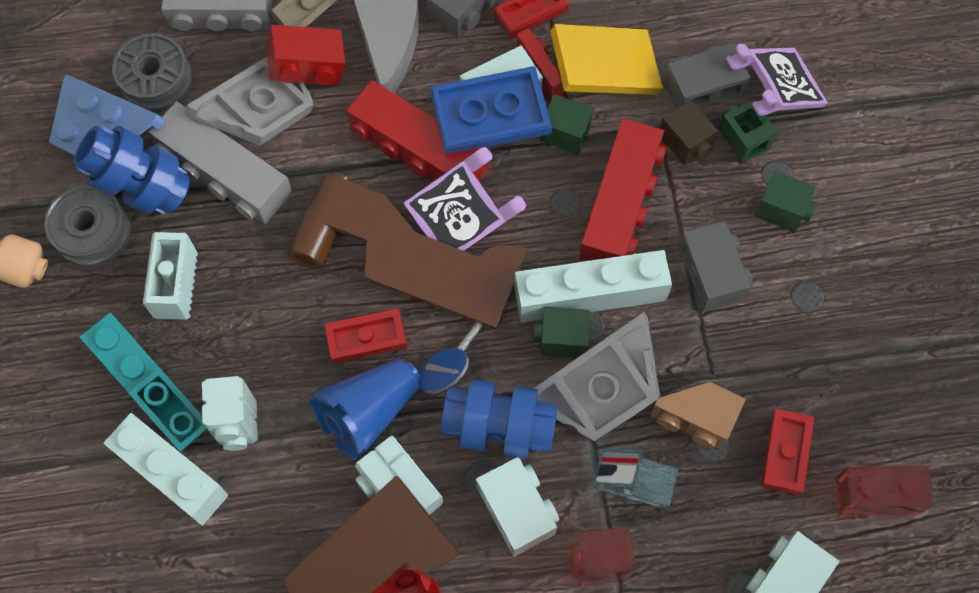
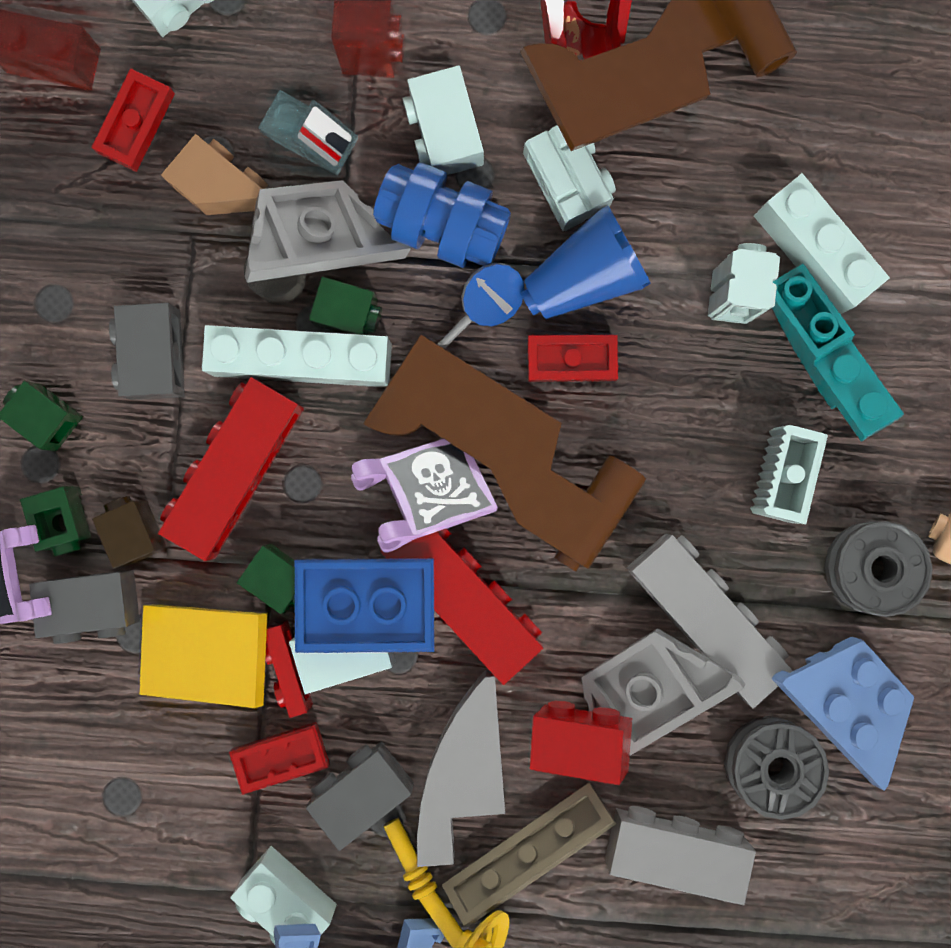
camera: 170 degrees left, 20 degrees up
(117, 163) = (836, 620): blue piece -> none

